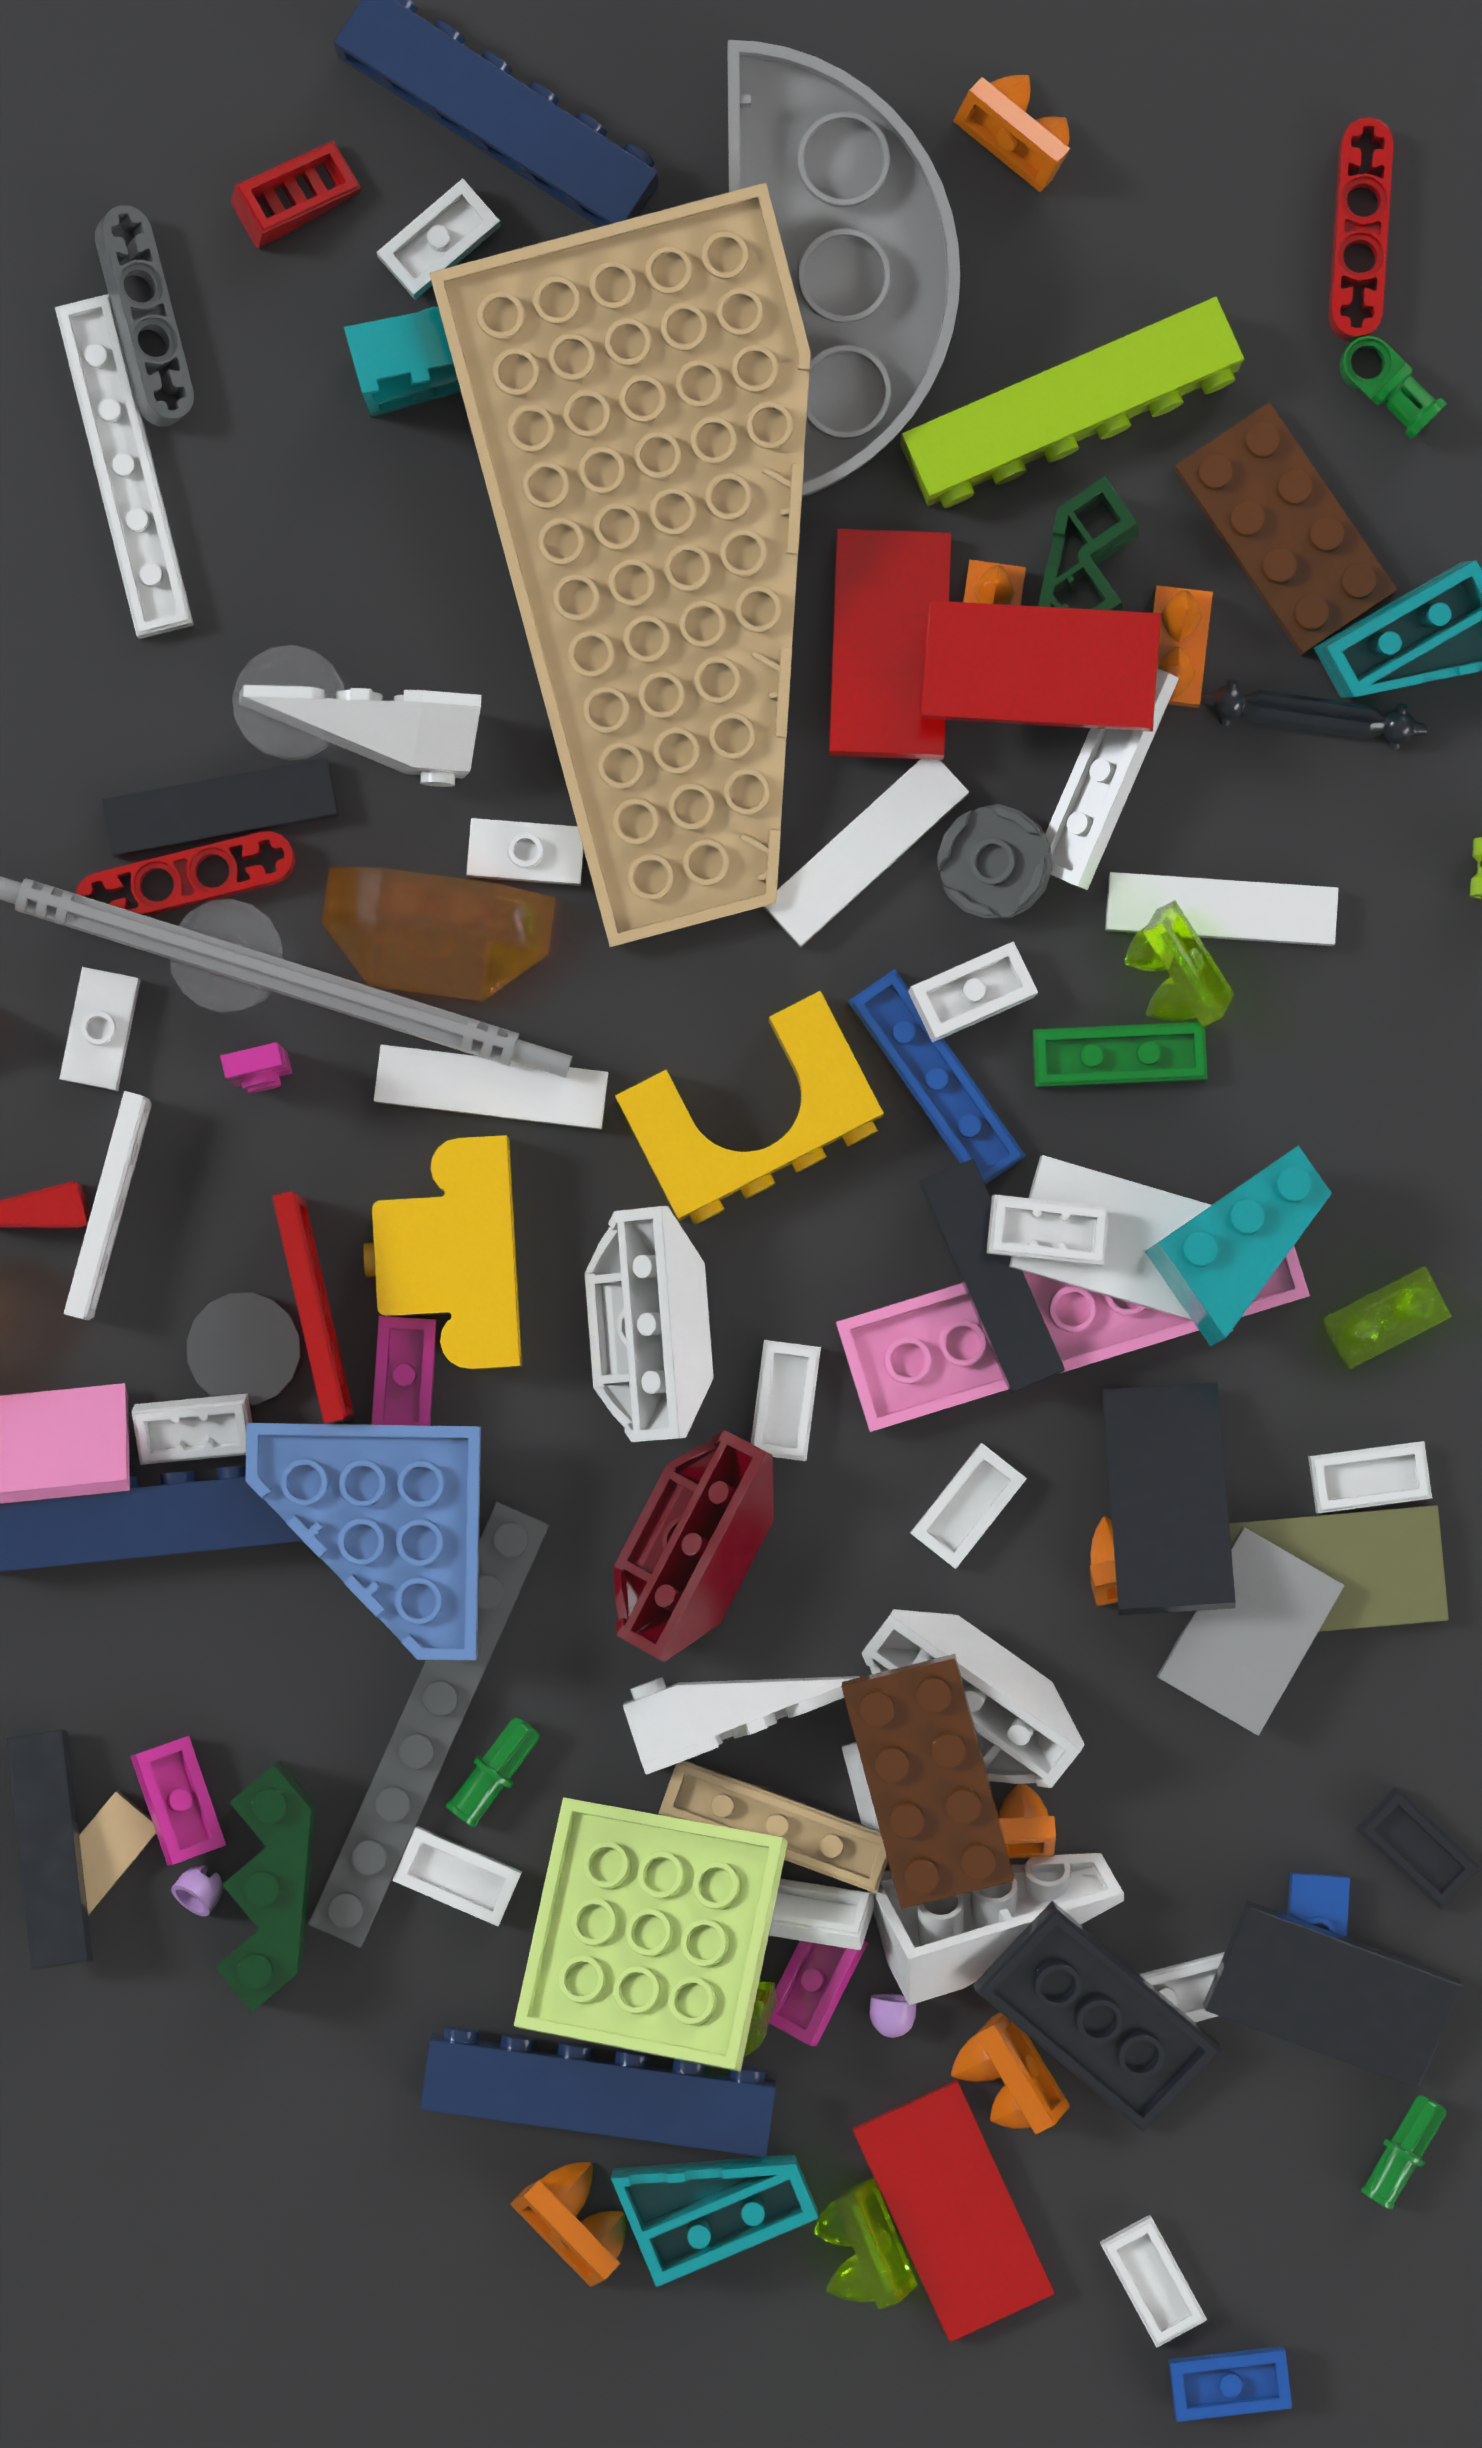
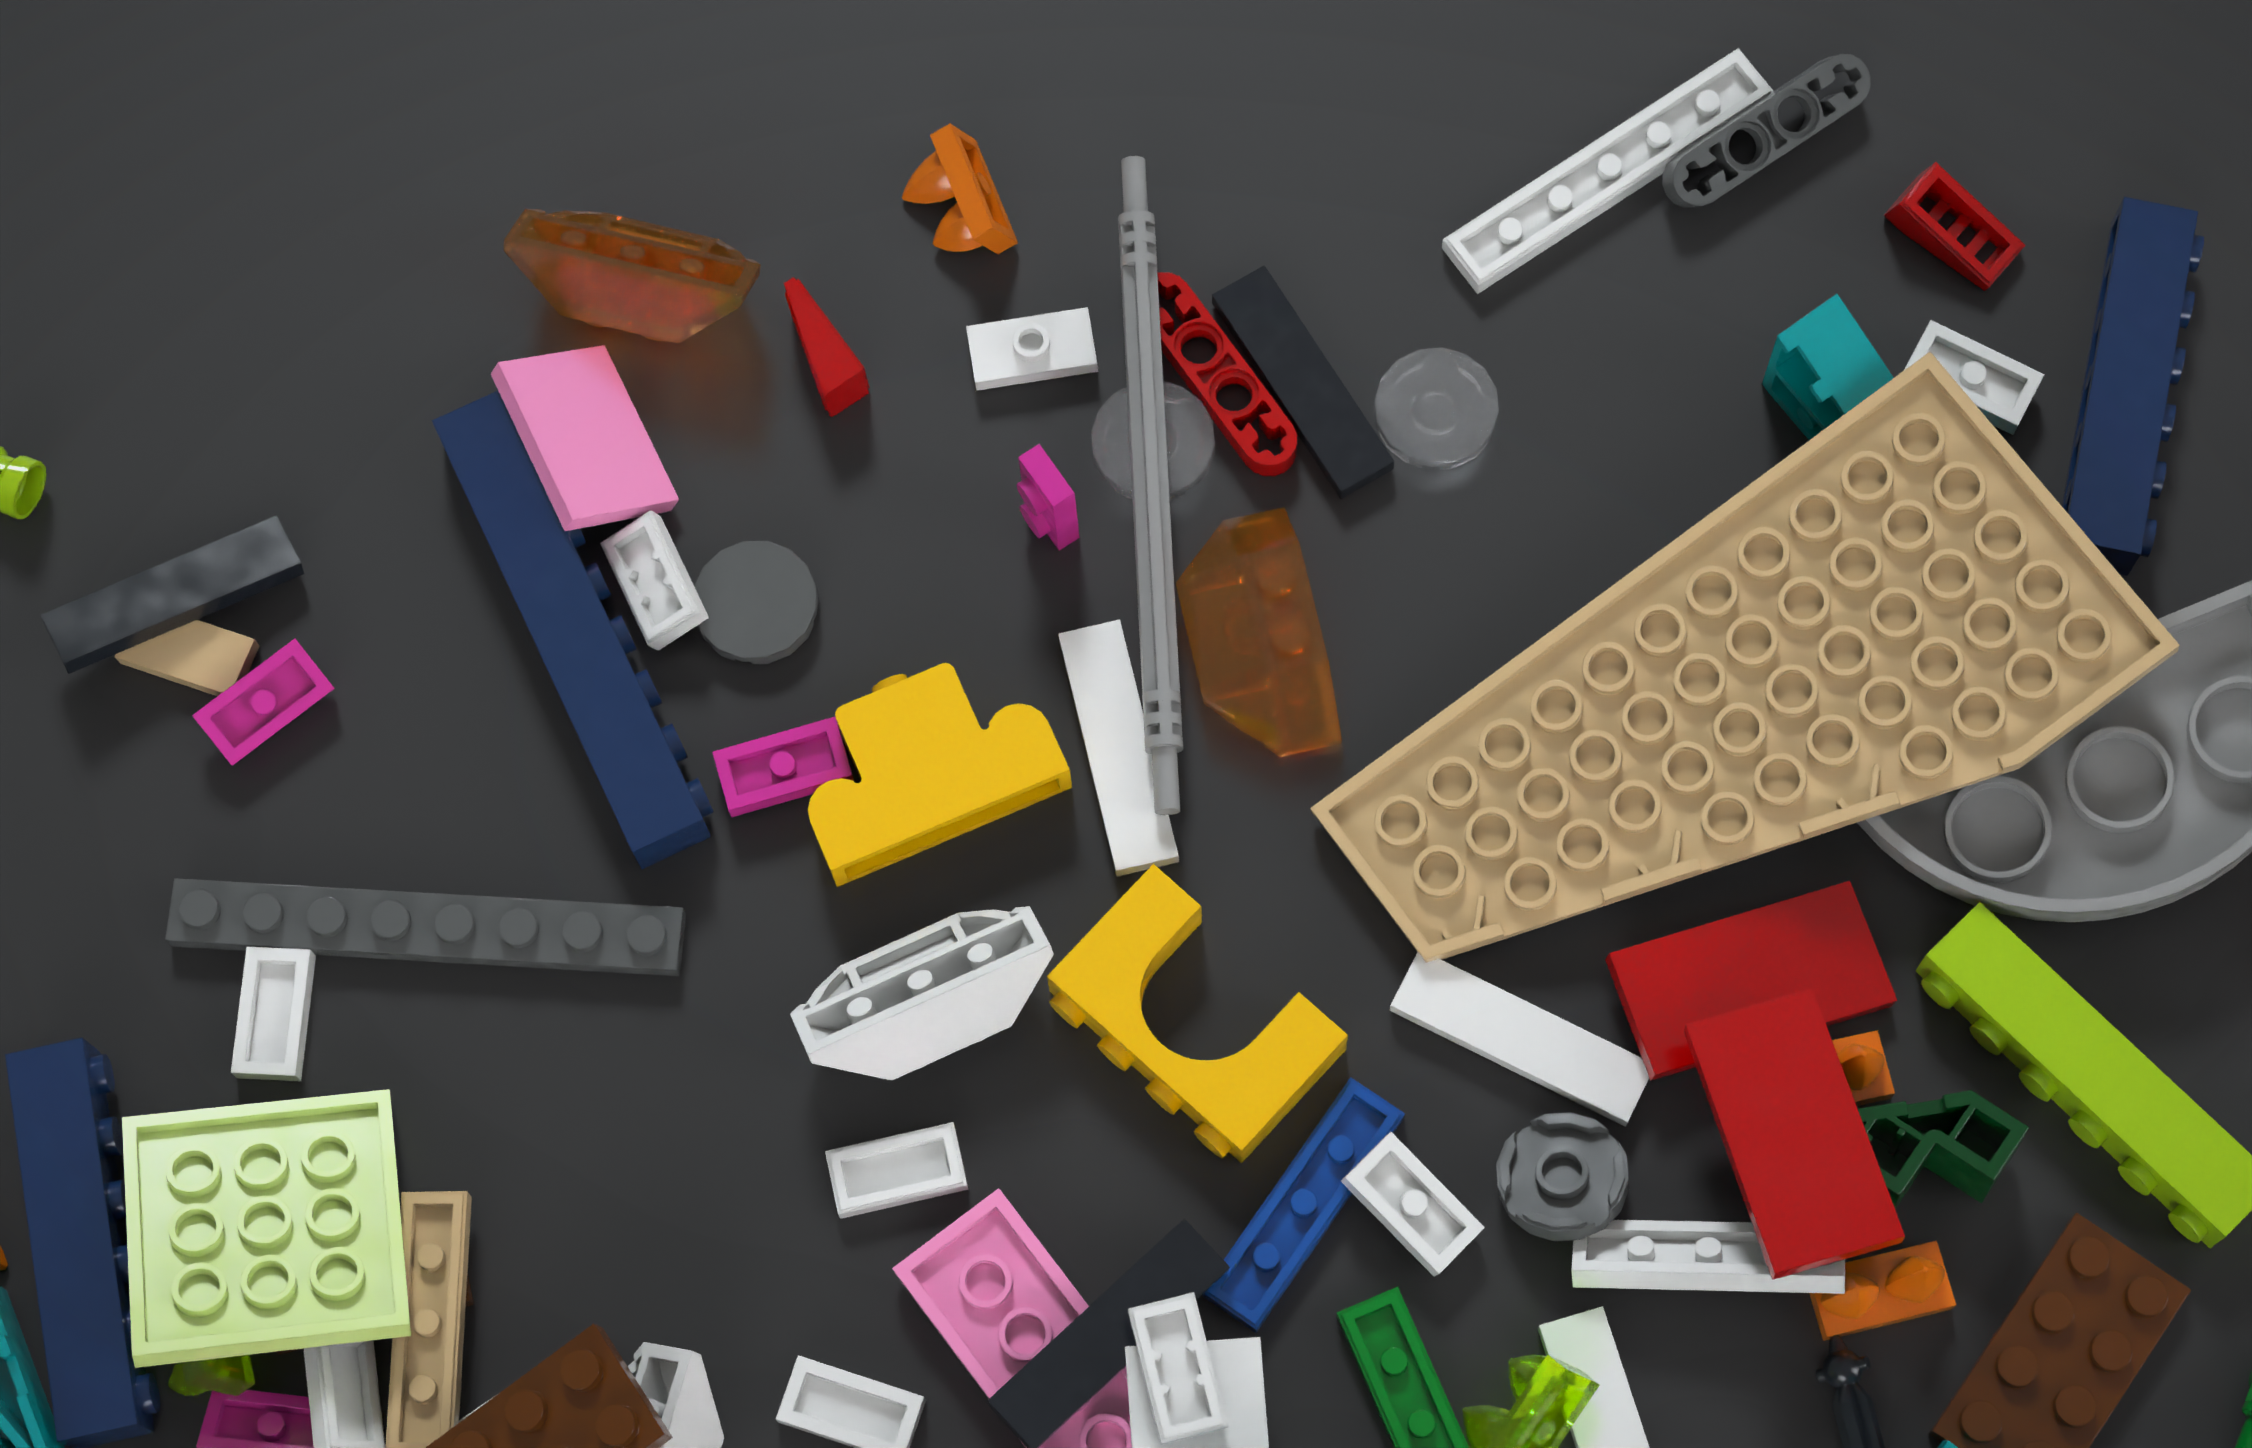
camera: 75 degrees right, 15 degrees down
(108, 1206) = (852, 416): white tile -> none
(197, 1890) = (179, 757): lavender hinge -> none
(272, 1886) = (201, 825): dark green brick -> none
(313, 1308) = (816, 643): red tile -> none
(388, 1516) = (623, 791): medium blue plate -> none
(413, 734) = (1454, 524): white wedge -> none
(493, 1771) = (394, 1009): green axle -> none
(525, 852) = (1375, 689): white plate -> none
(693, 1544) = (700, 1125): dark red wedge -> none
(696, 1716) = (522, 1196): white wedge -> none

